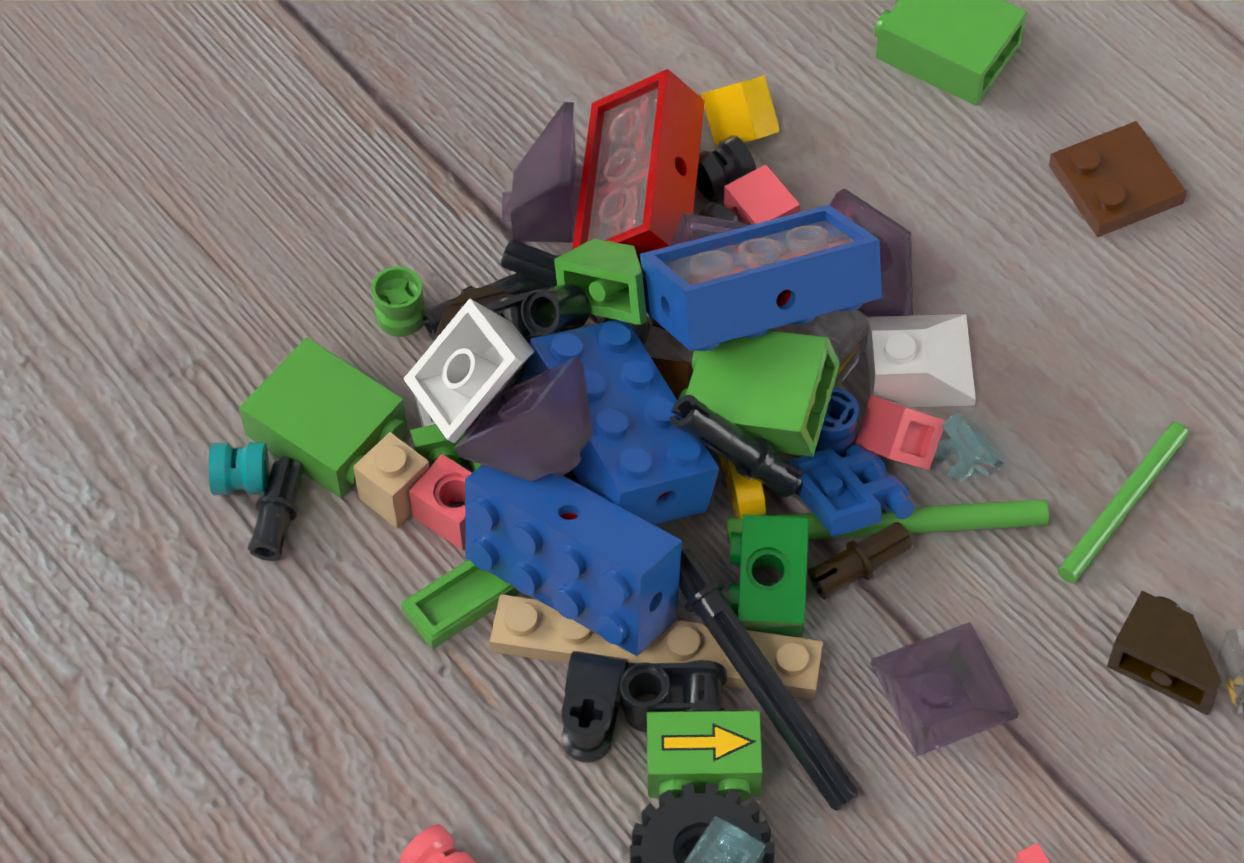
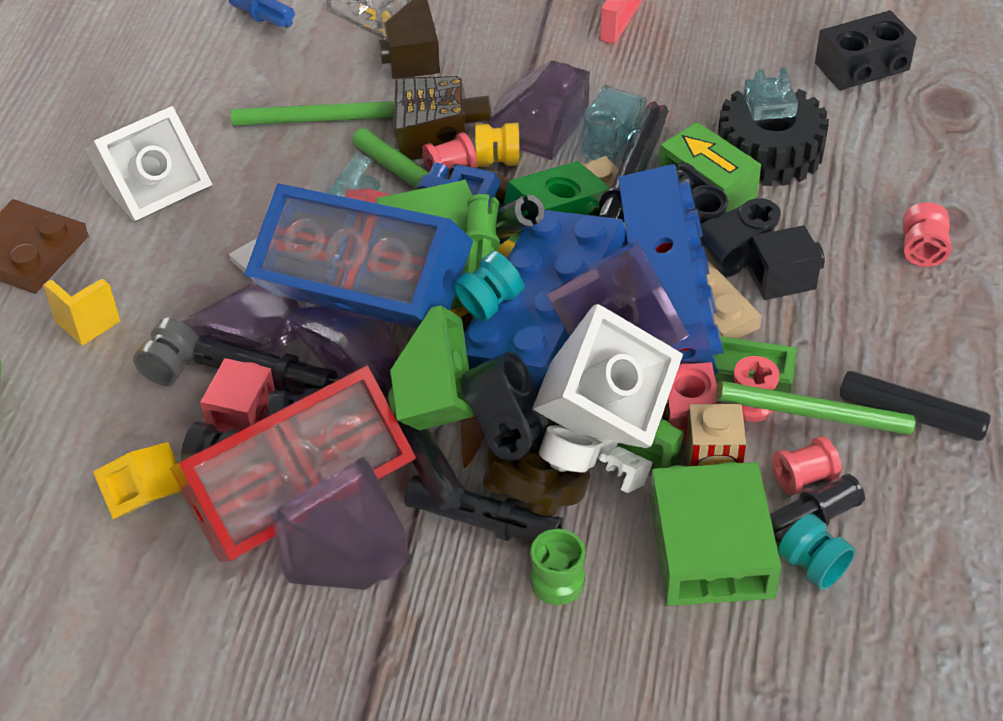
camera: 130 degrees left, 10 degrees down
(288, 674) = (925, 407): none -> black axle
(314, 532) = (806, 465): none -> coral bush
(348, 574) = (815, 407): none -> bright green bar
(417, 557) = (764, 376): none -> coral bush
(525, 711) = (785, 262): none -> black brick
(638, 340) = (488, 286): none -> teal wheel
(712, 390) = (481, 229): none -> bright green axle
(863, 740) = (611, 121): none -> clear light blue piece
(865, 182) = (164, 355): none -> dark grey wheel
(912, 606) = (507, 143): none -> yellow wheel
(935, 554) = (454, 152): none -> coral bush
(978, 165) = (86, 312): none -> yellow panel
(1009, 576) = (434, 112): none -> torso
(1138, 297) = (148, 164): none -> white slope

